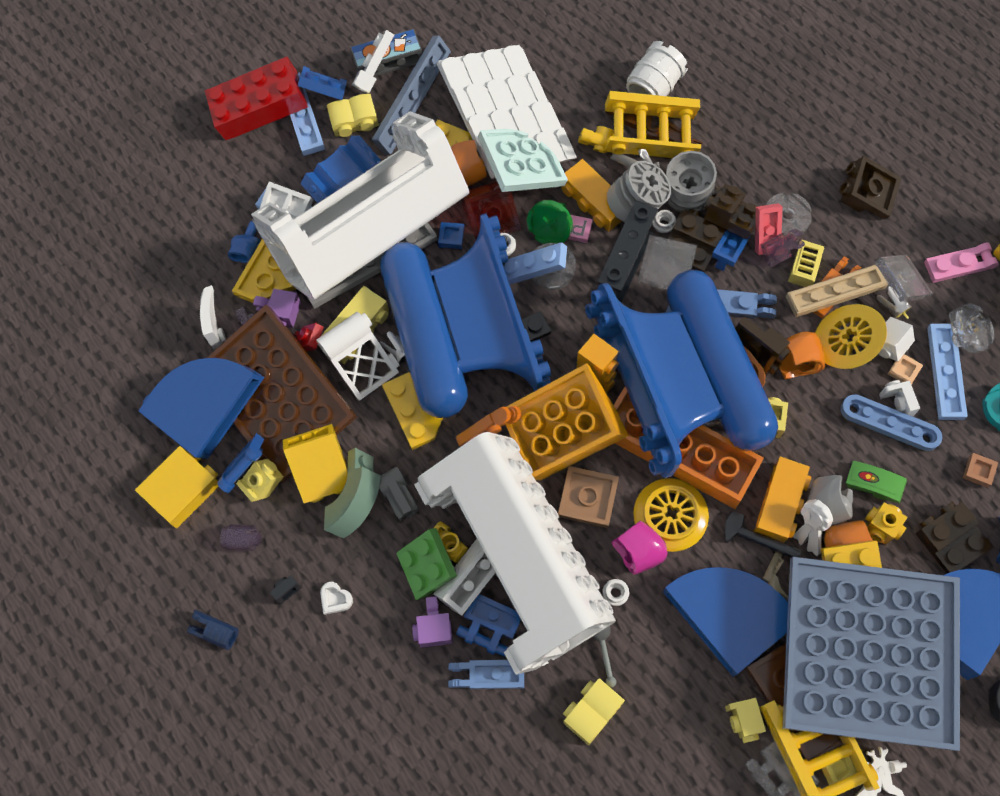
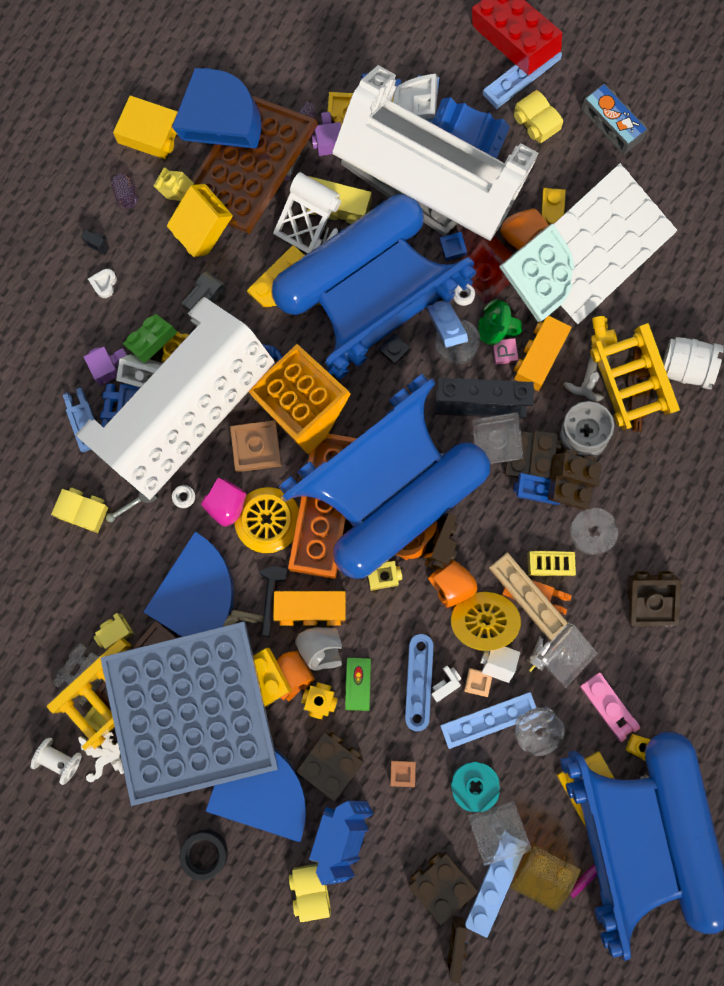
camera: 70 degrees right, 10 degrees up
(208, 320) = (290, 85): white plate -> none
(215, 632) = (46, 203): dark blue hinge -> none
(240, 463) = (178, 163): blue plate -> none
(308, 335) = (307, 166): red plate -> none
(322, 84) = (554, 76): blue plate -> none
(357, 497) = (187, 262): sand green arch -> none
(364, 79) = (575, 109): white plate -> none
(412, 92) = (588, 157): sand blue plate -> none
(490, 423) = (279, 340): orange hinge -> none
(601, 359) = (365, 407): light orange brick -> none
(641, 183) = (555, 386): light grey wheel -> none
(667, 216) = (545, 417): white plate -> none
(745, 304) = (486, 516): medium blue hinge -> none
(767, 224) = (567, 516): coral plate -> none
(779, 247) = (554, 533): clear purple plate -> none
(816, 519) = (292, 637): white piece -> none

